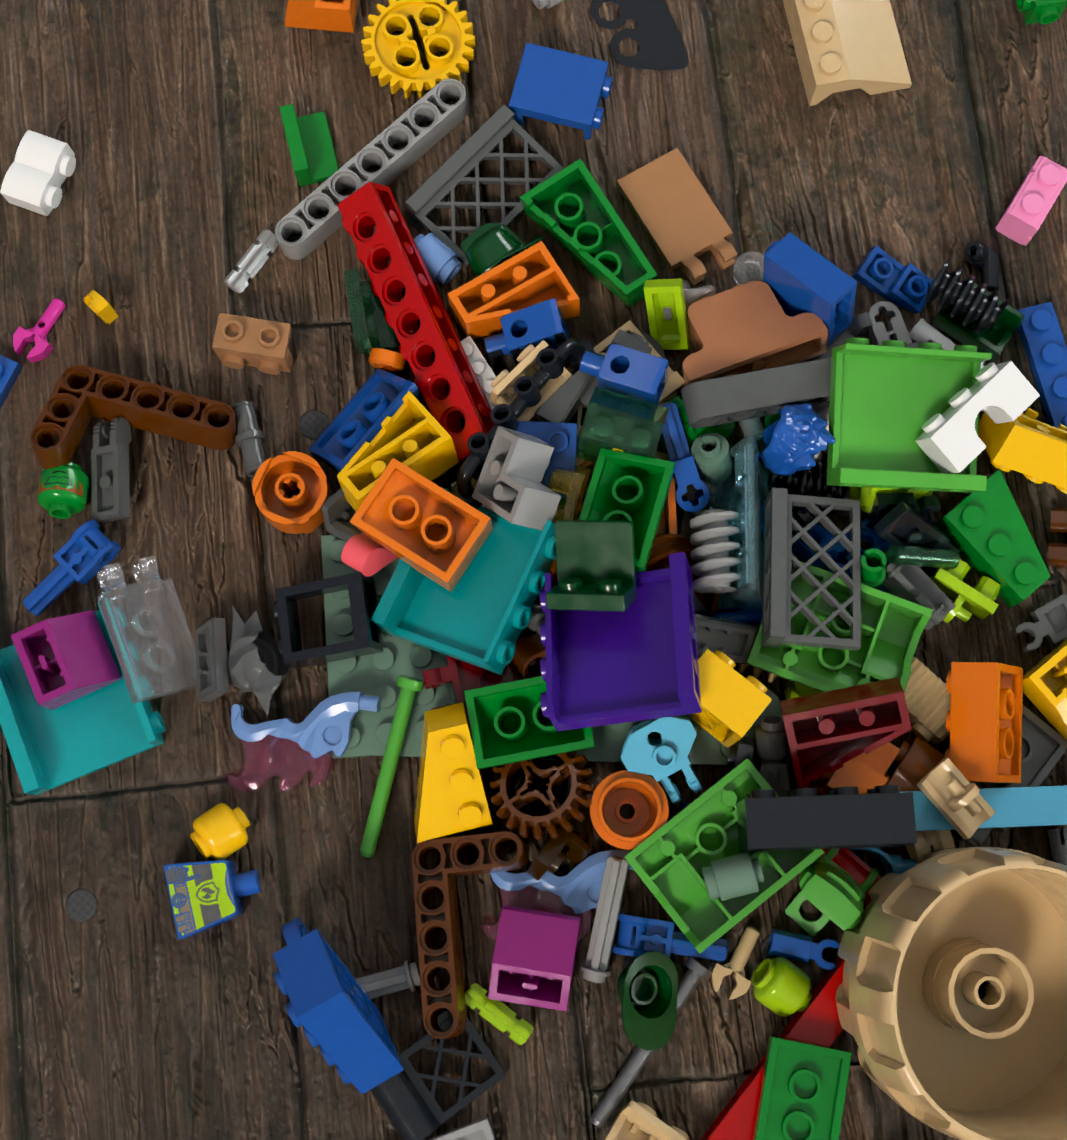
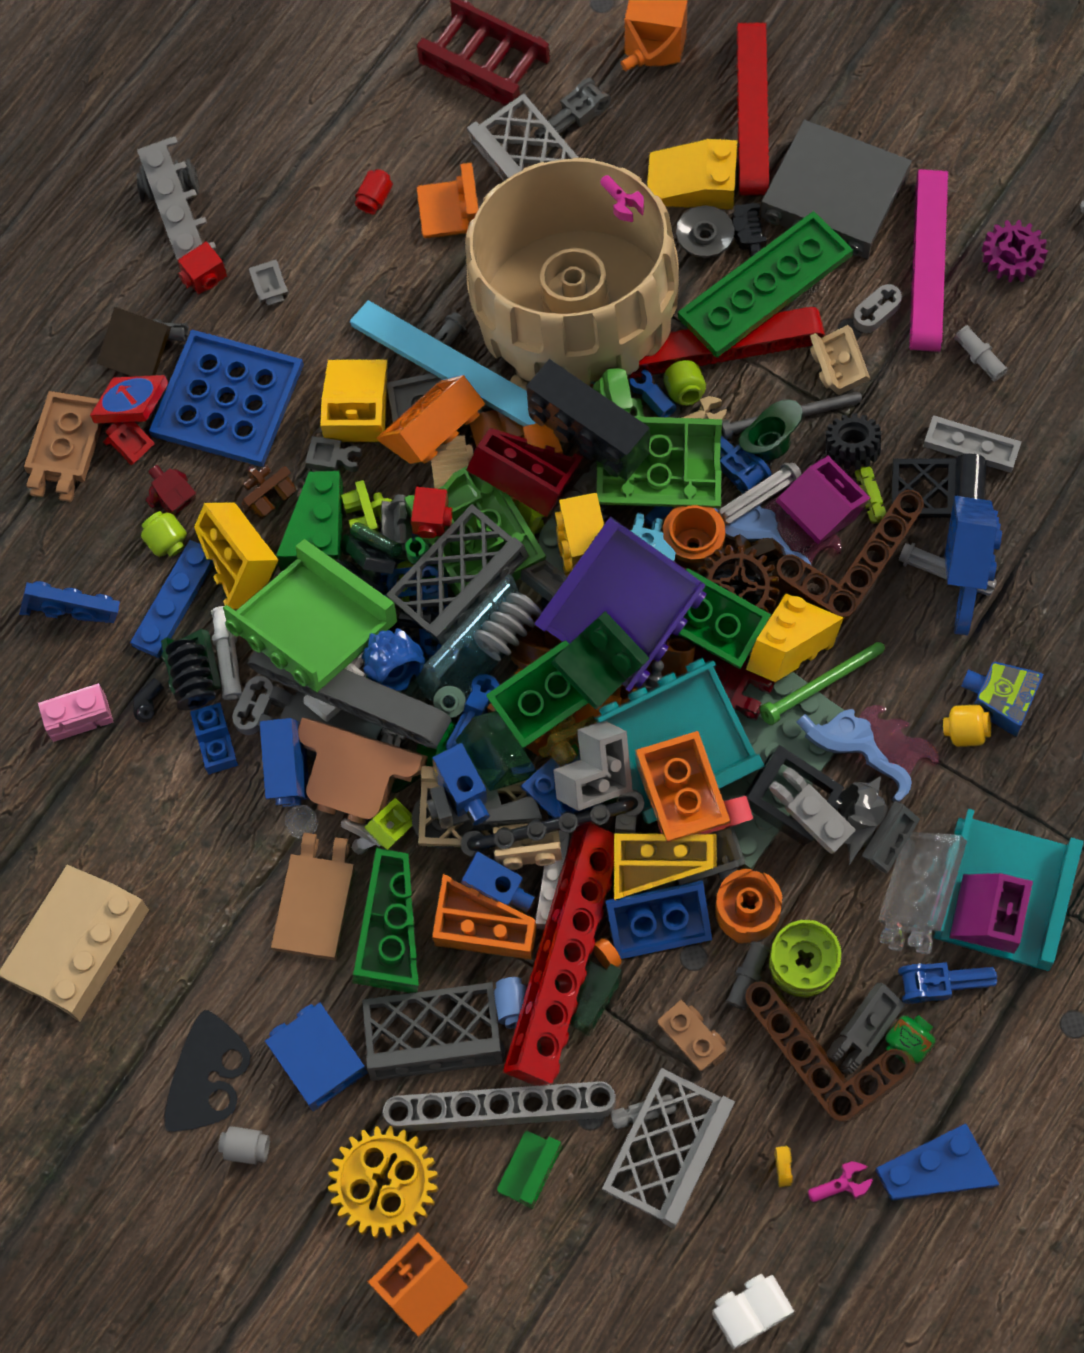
camera: 135 degrees left, 10 degrees down
(177, 258) = (695, 1160): none -> light grey fence
(198, 463) = (808, 940): none -> lime wheel
(289, 610) = (813, 812): none -> light grey hinge
(490, 245) = (464, 964): dark green piece -> none
(573, 1072) = (853, 429): none -> black tyre
(732, 876) = (668, 438): sand green brick -> none
(890, 605) = (430, 512): none -> red brick
(952, 437) = (292, 584): white arch -> none
(956, 798) = (493, 388): tan hips -> none
(1009, 1101) = (632, 200): none -> dark pink bar

